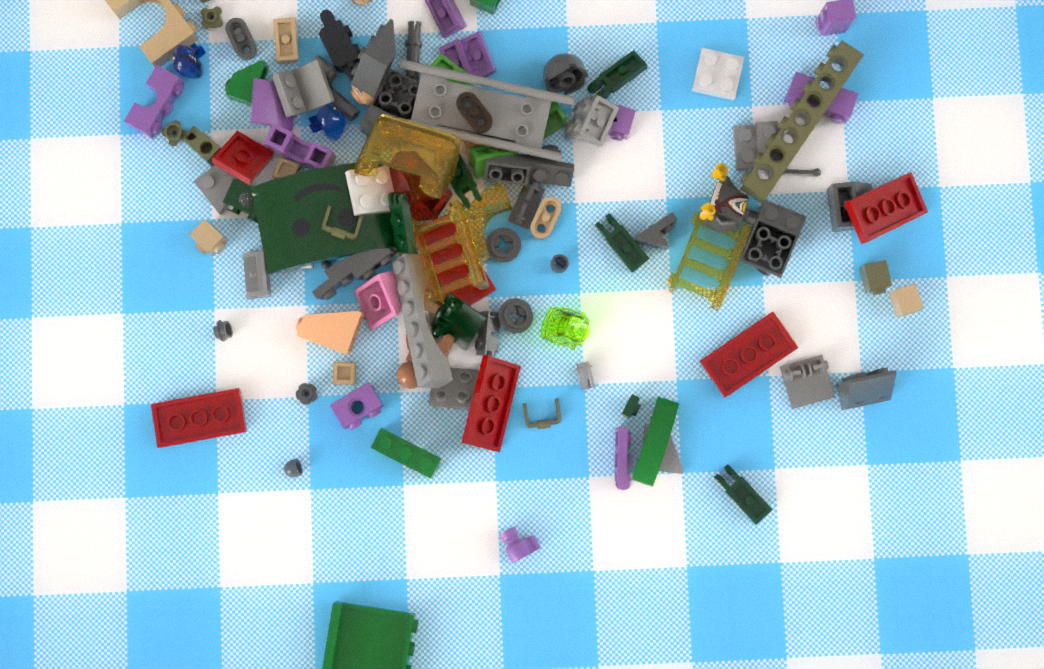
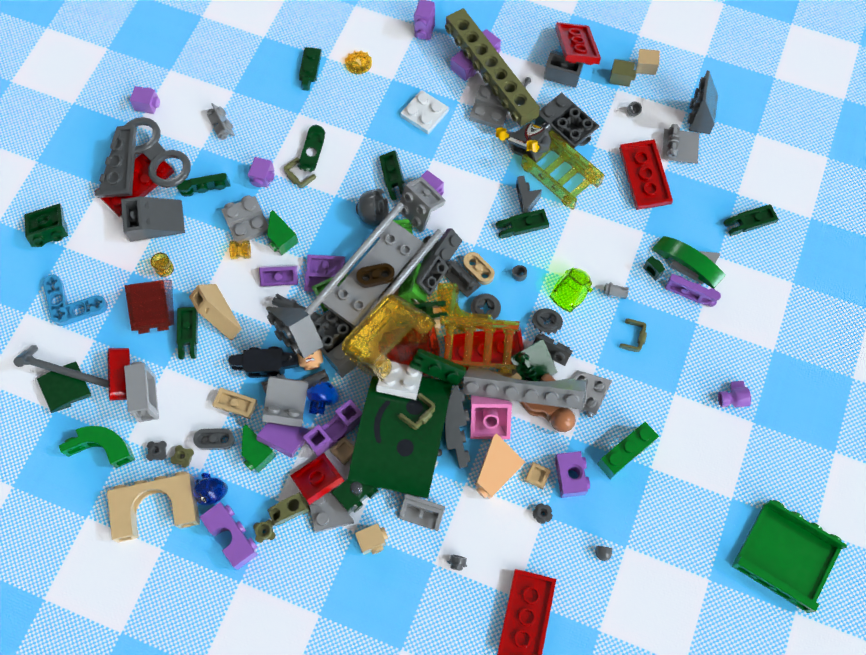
camera: 70 degrees left, 15 degrees down
(491, 403) = (613, 366): red plate -> none
(835, 313) = (637, 108): none -> dark grey hinge

